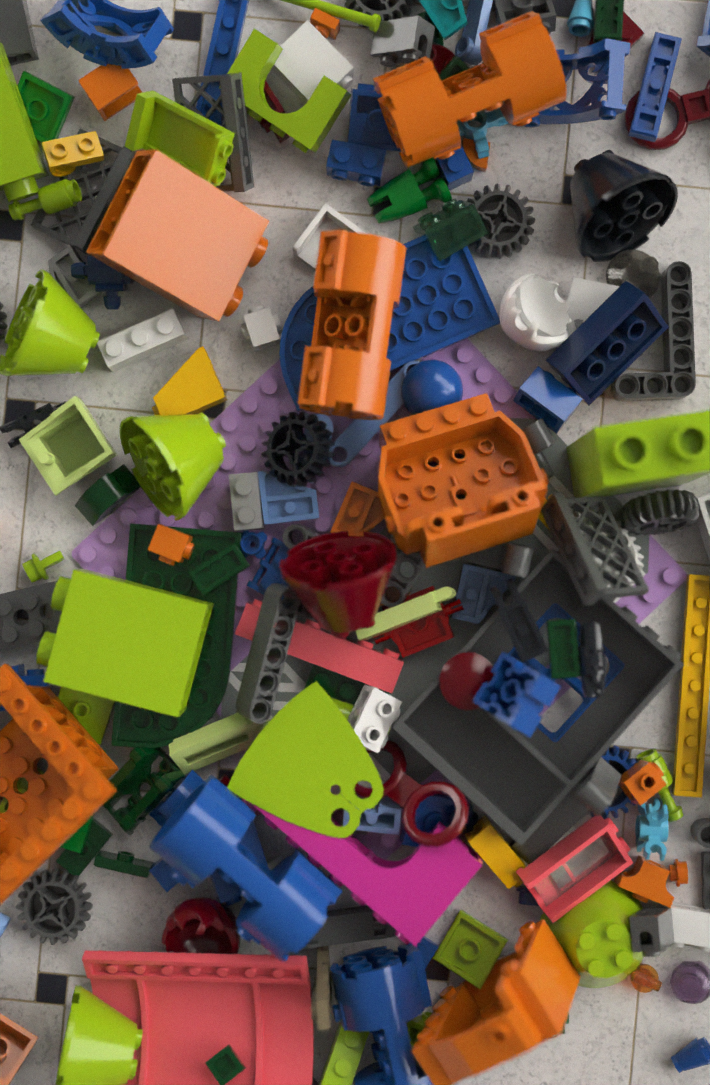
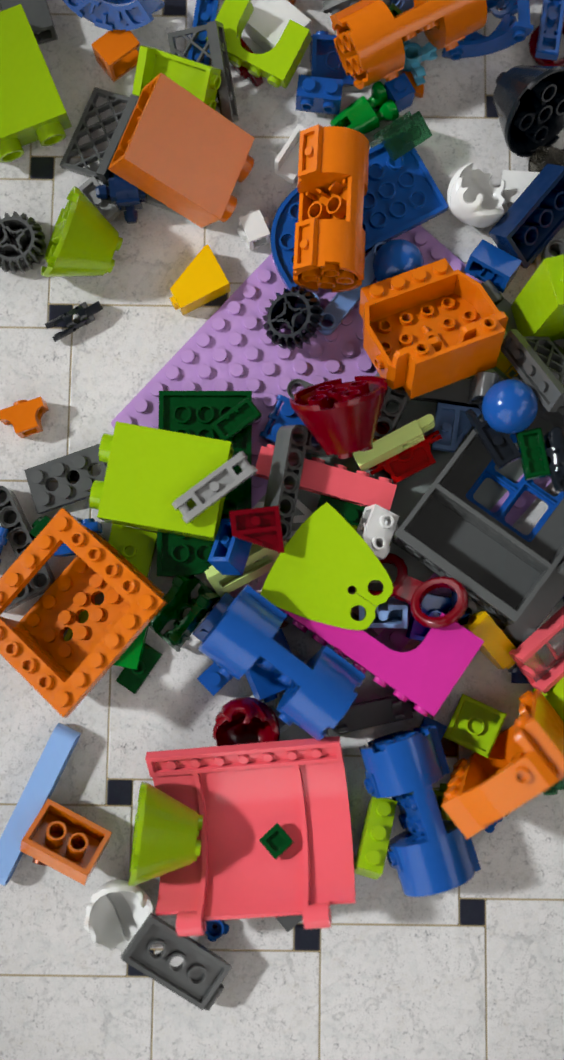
camera: 10 degrees left, 5 degrees down
(37, 569) = (83, 436): lime piece -> none
(45, 106) = (66, 71): green plate -> none
(50, 198) = (76, 139): lime piece -> none
(58, 915) = (101, 732): dark grey gear -> none
(67, 445) = (104, 329): yellowish green piece -> none
(72, 151) = (87, 102): yellow plate -> none
(106, 494) = (136, 370): dark green brick -> none
(123, 862) = (173, 675): dark green plate -> none
(142, 340) = (158, 245): white brick -> none
(171, 545) = (194, 402): orange brick -> none
(172, 458) = (188, 331): lime cone -> none
(183, 659) = (214, 487): none -> light grey plate
(200, 724) = (228, 552): none -> blue brick
(232, 708) = (258, 526): none -> dark red wing
(246, 501) = (254, 365): light grey piece -> none
(259, 539) = (263, 395): blue plate -> none
(286, 503) = (286, 364): medium blue wing -> none
(322, 990) = (355, 765): dark tan wing -> none
(359, 511) = (349, 363): orange wing -> none
(463, 678) = (455, 489): dark red dish -> none
(507, 223) = (450, 128): dark grey gear -> none
(516, 694) = (500, 490): blue brick -> none
(541, 590) = (509, 406): none -> blue piece

